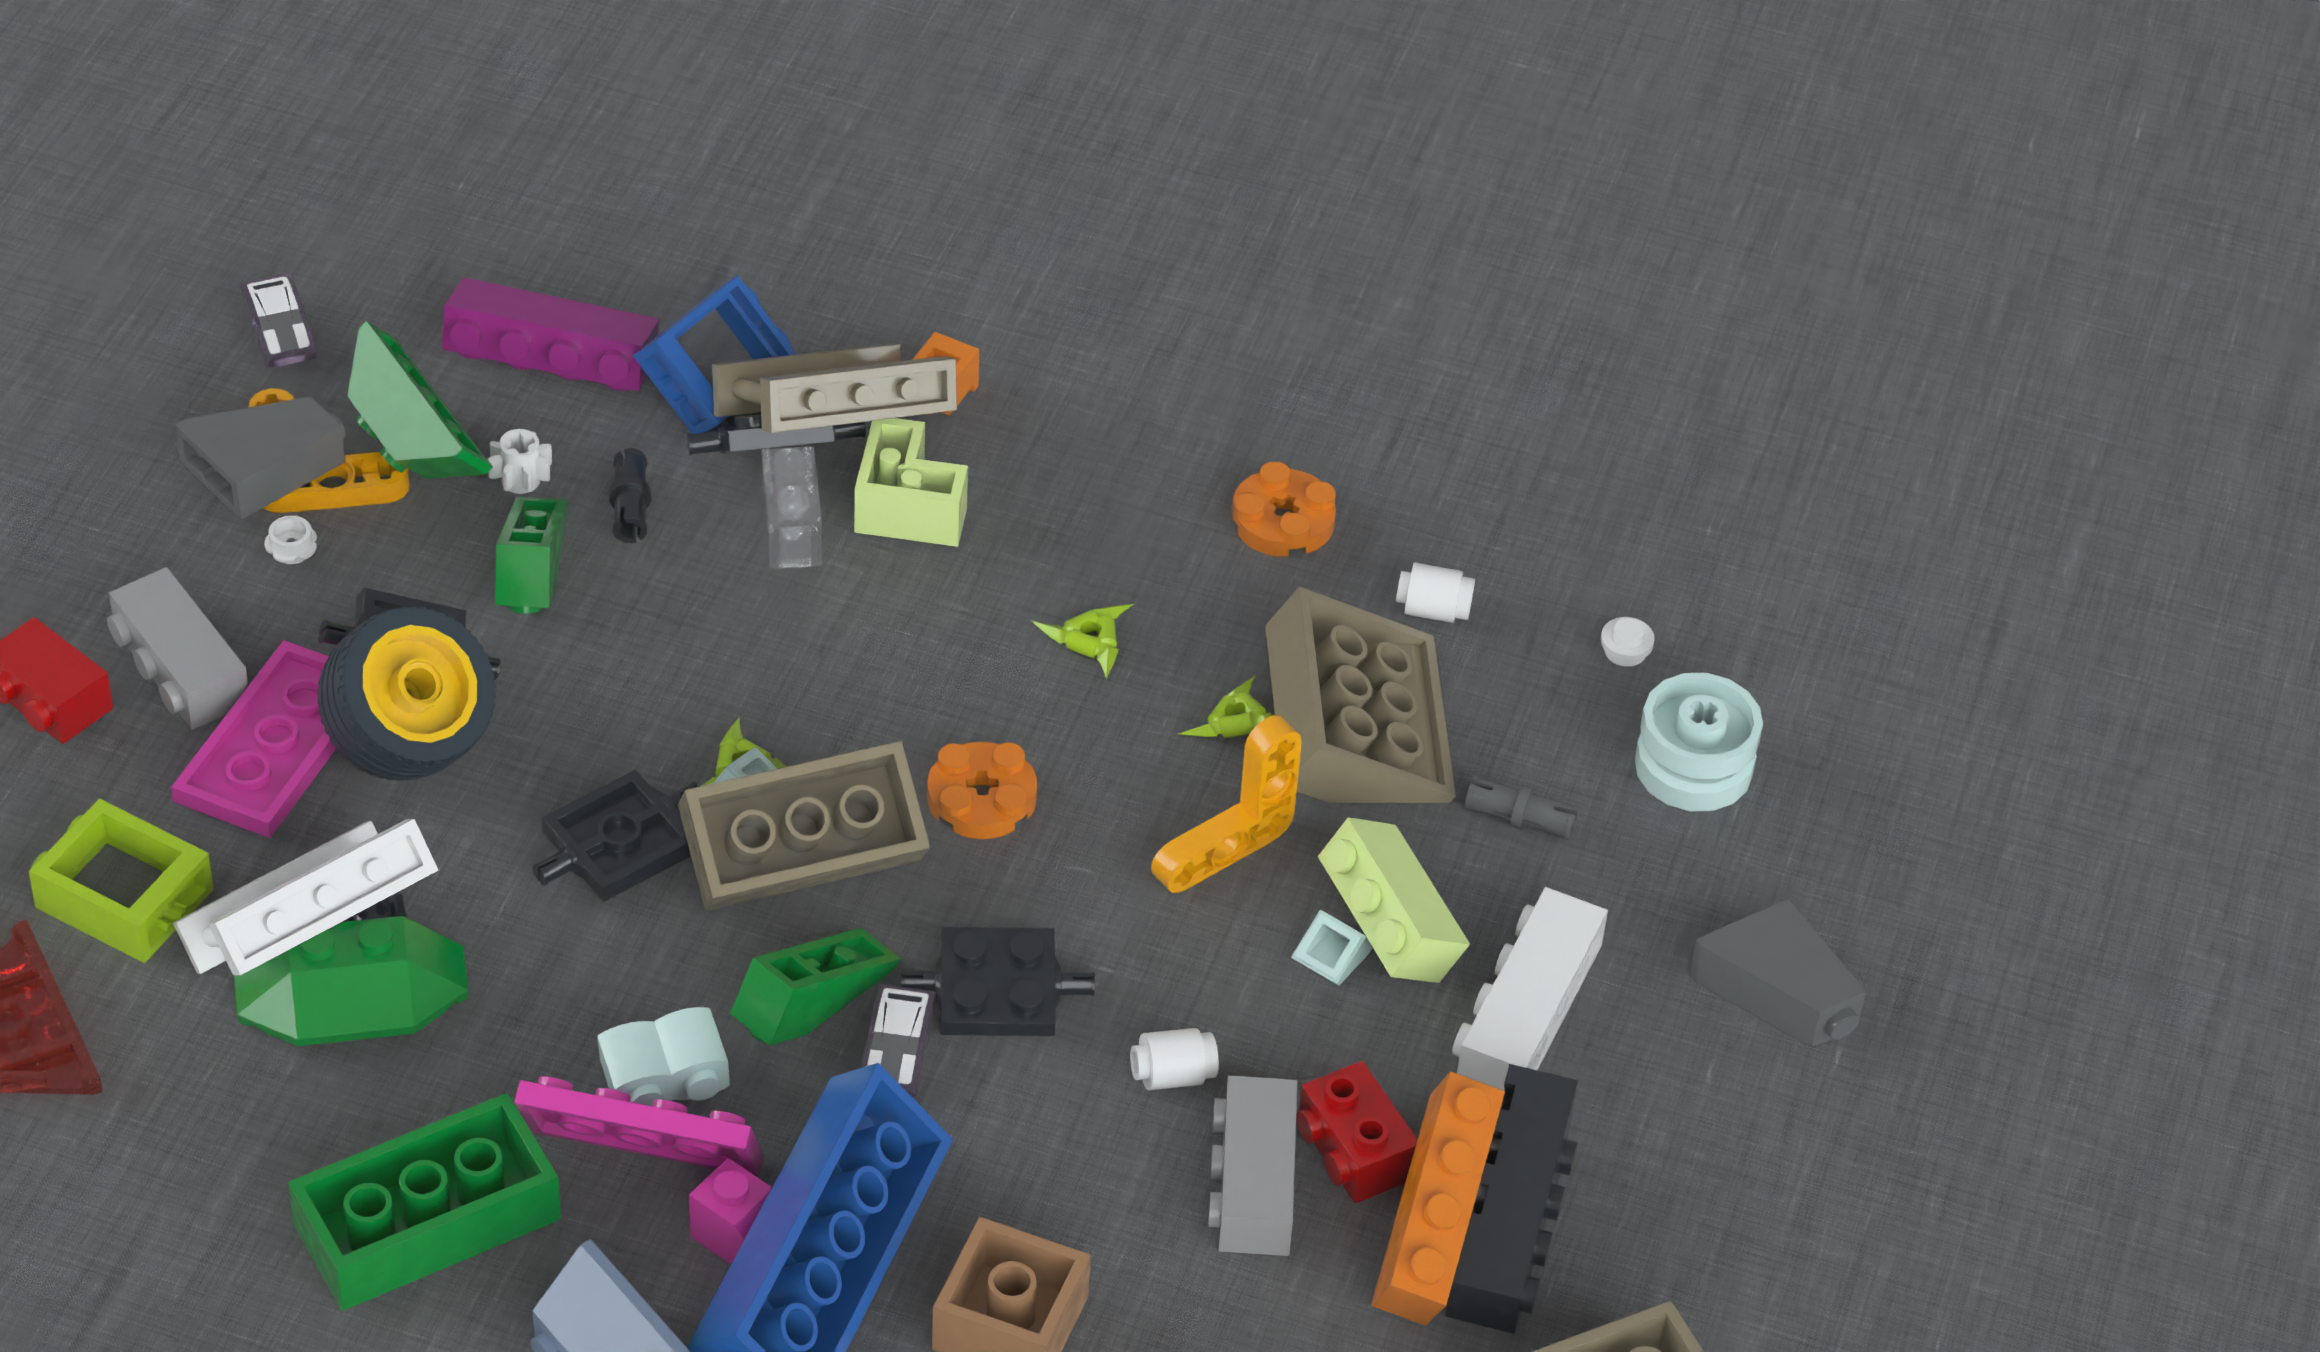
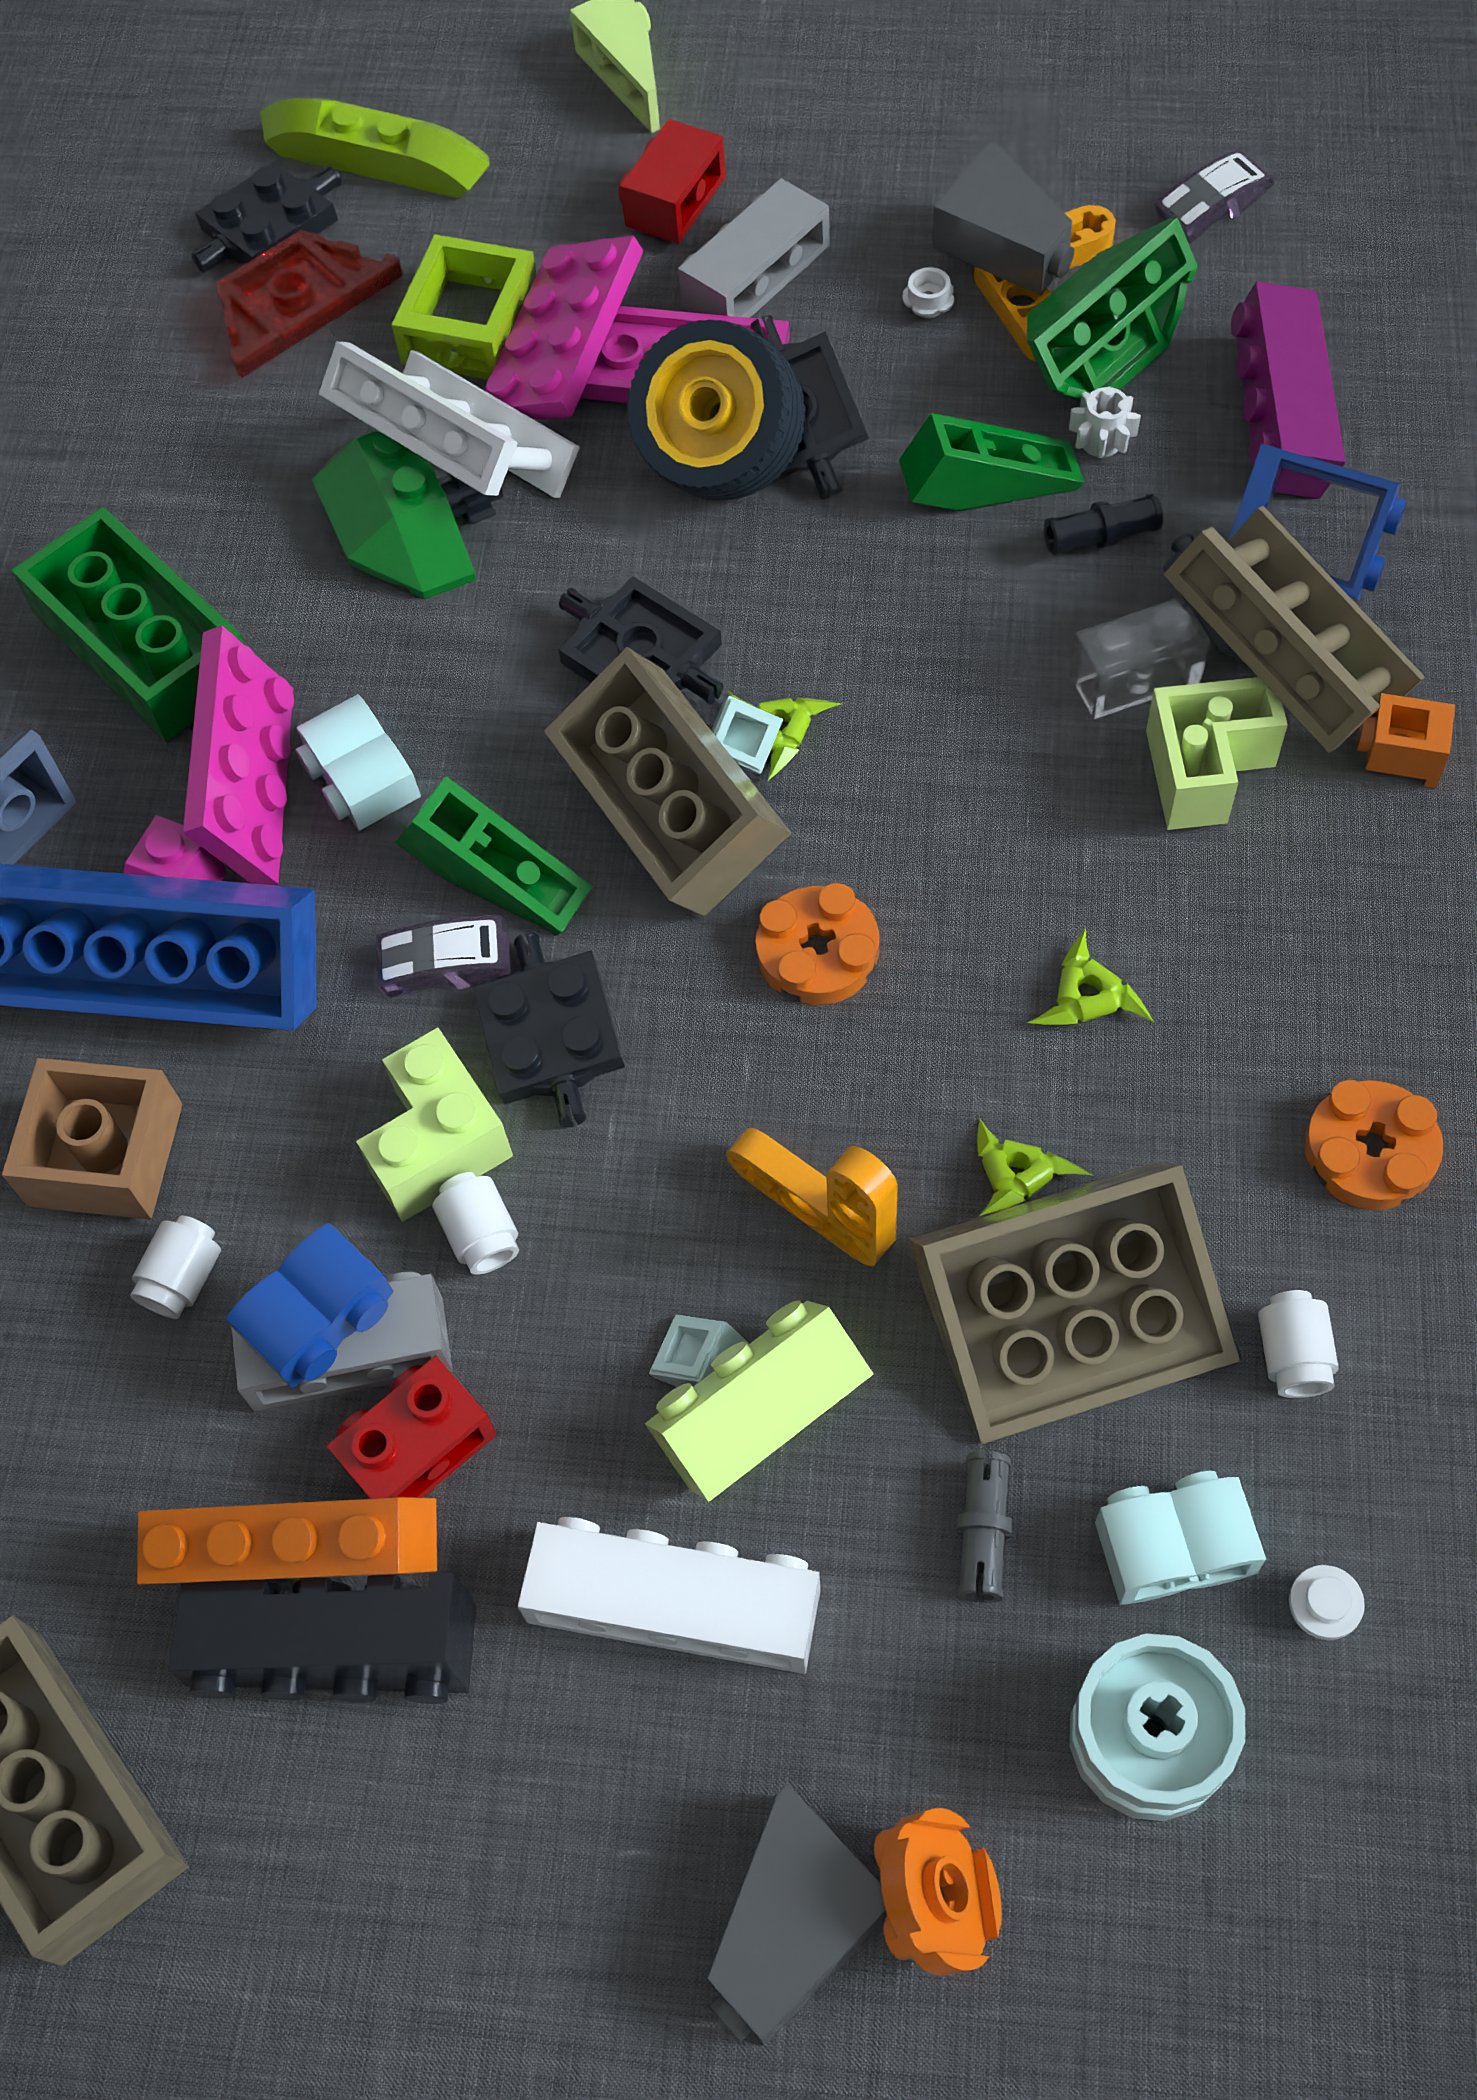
camera: 85 degrees right, 15 degrees up
(207, 799) = (563, 326): none -> dark pink plate
(1079, 1056) = (441, 1134): none -> yellowish green brick
(1149, 1272) = (175, 1266): none -> white brick
(1246, 1139) = (311, 1306): none -> blue brick
(1564, 698) = (1178, 1537): none -> light aqua brick
(1798, 877) = (917, 1860): none -> orange plate

